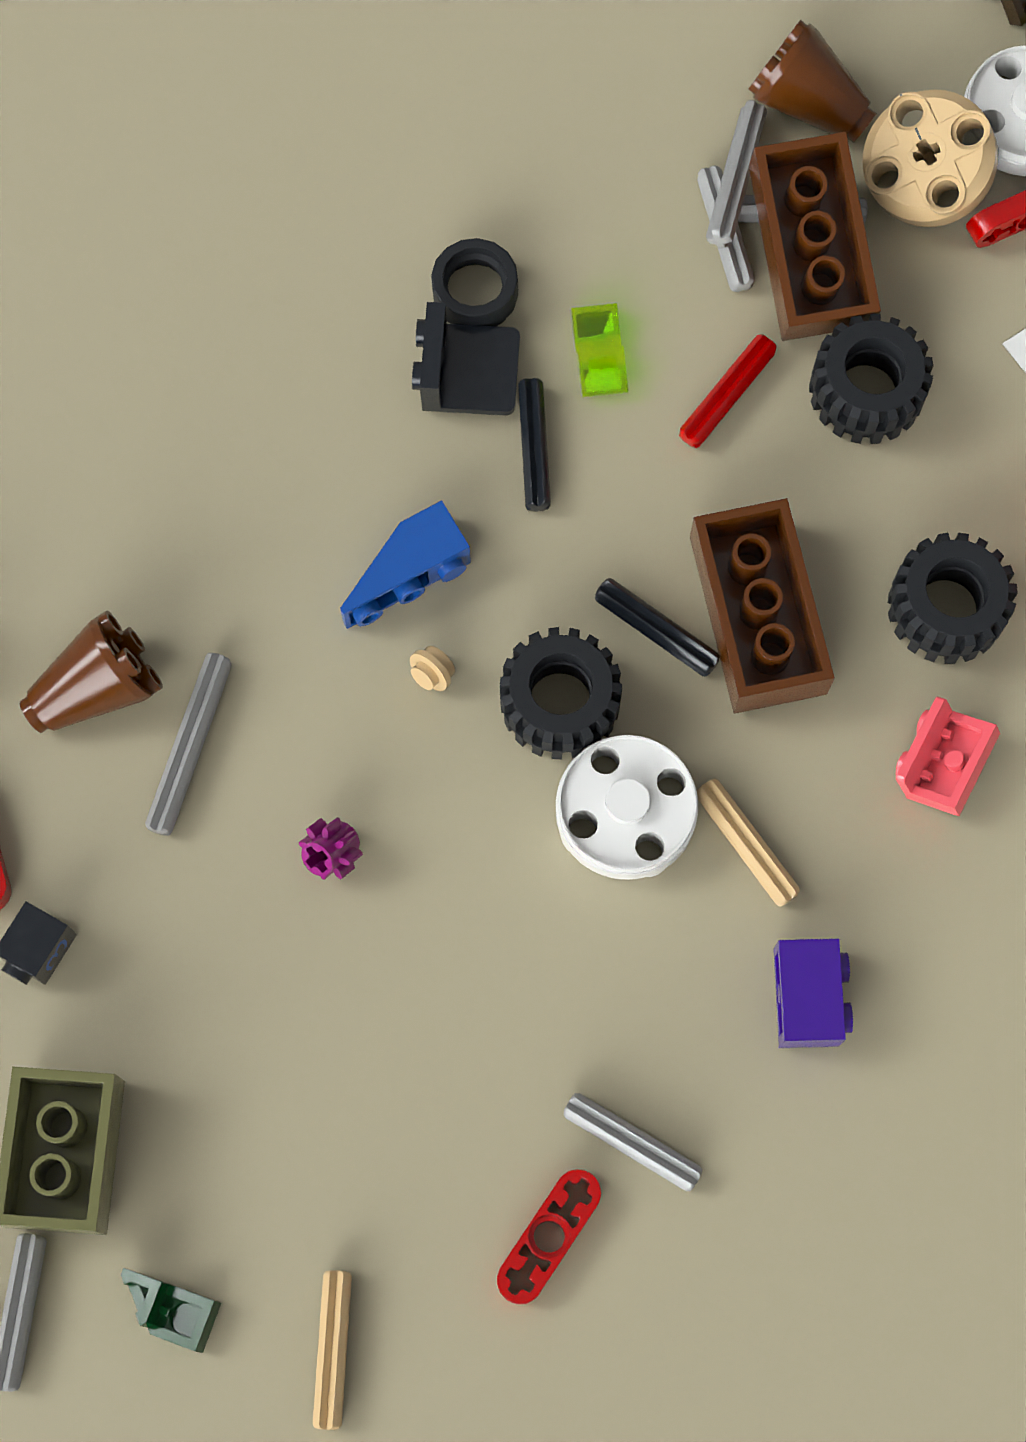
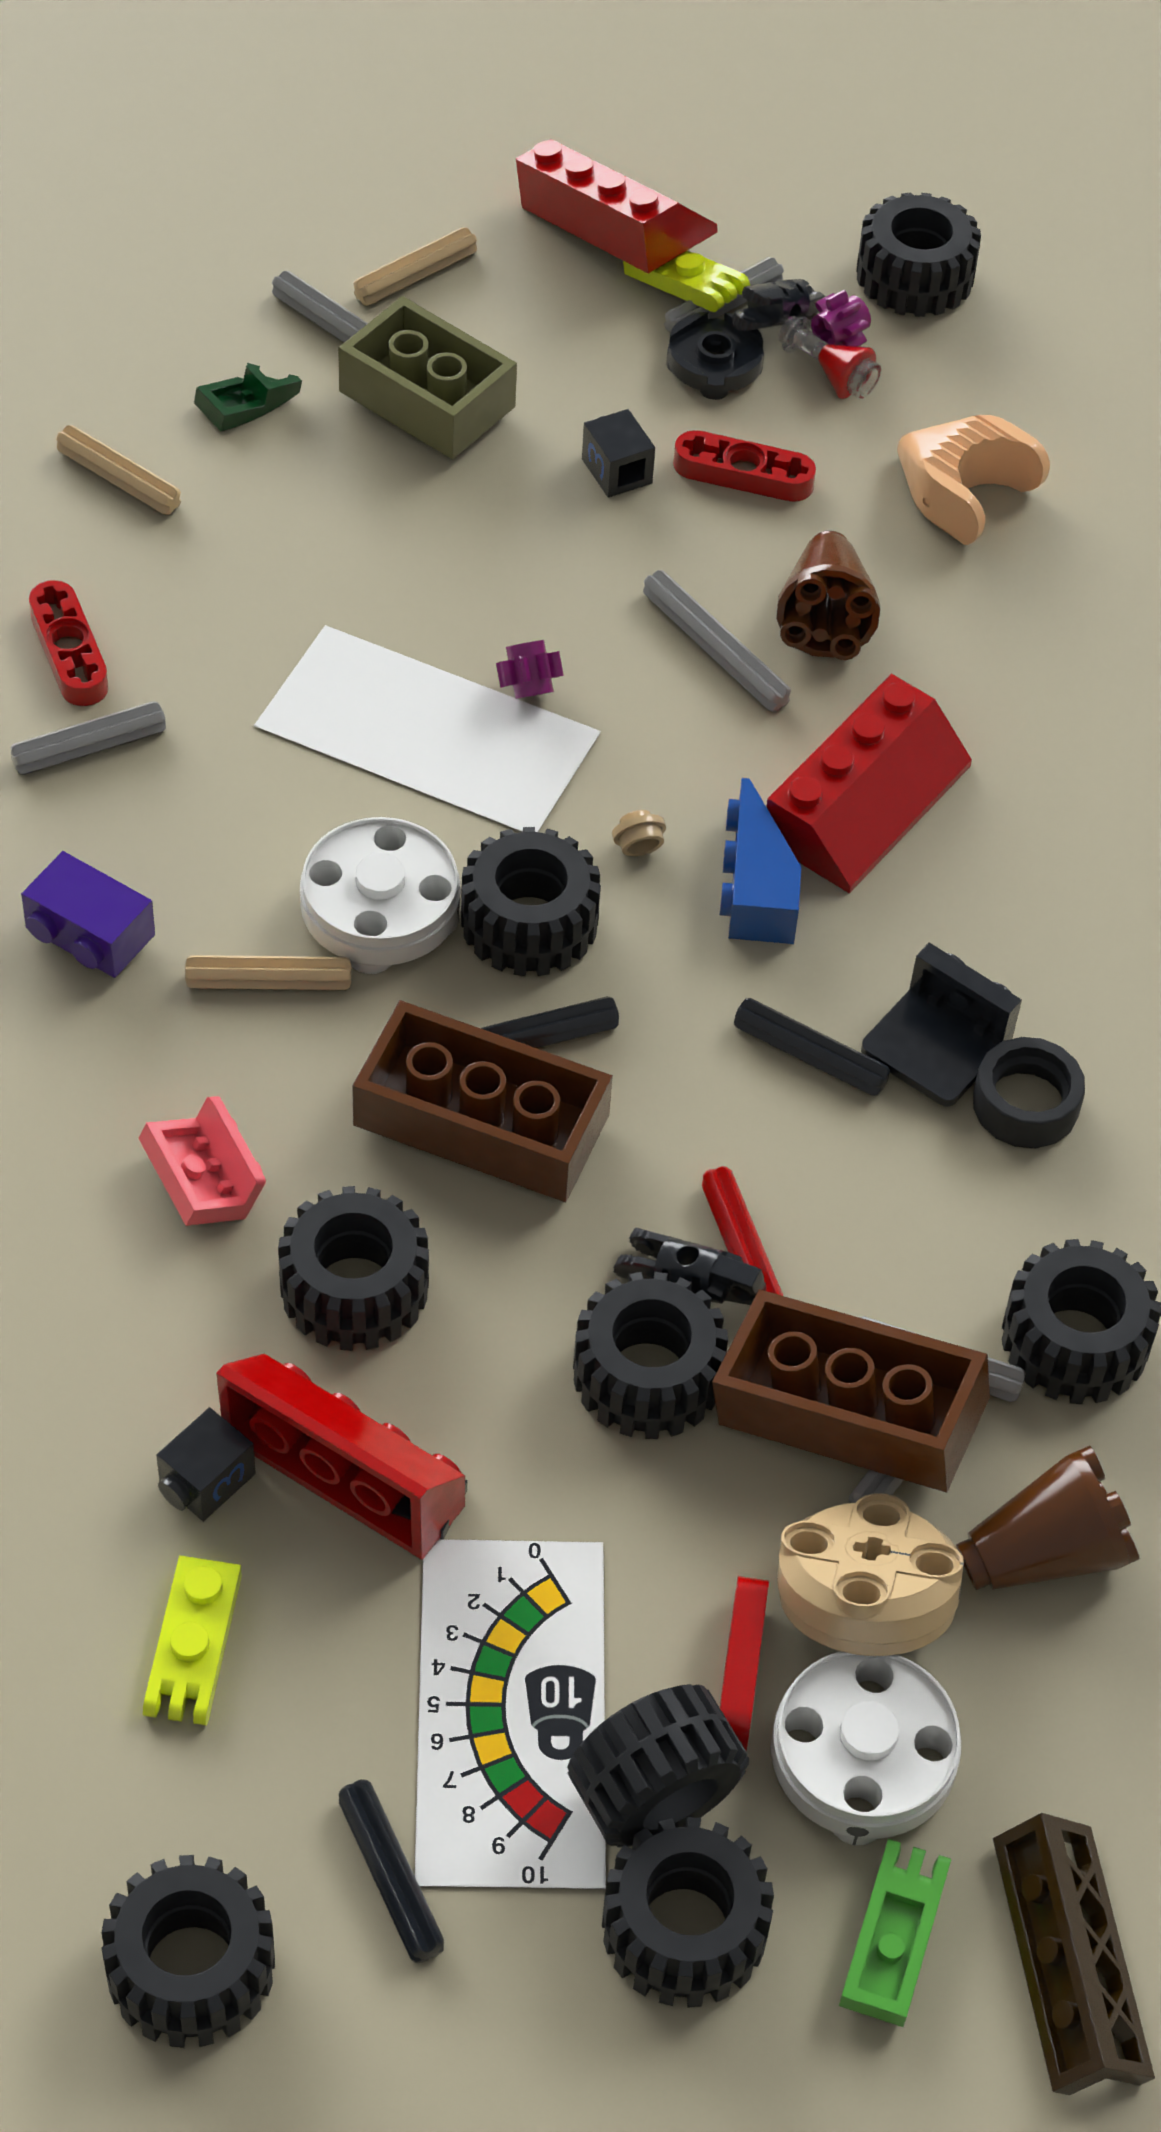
camera: 120 degrees right, 20 degrees down
(267, 545) = (869, 783): none -> red slope
(428, 905) = (428, 729): none -> white sticker
(599, 350) = (864, 1158): clear neon green slope -> none
(648, 119) = (1086, 1282): none -> black tyre
(736, 174) = (1004, 1403): light grey axle -> none
(782, 377) = (708, 1269): none -> black hinge

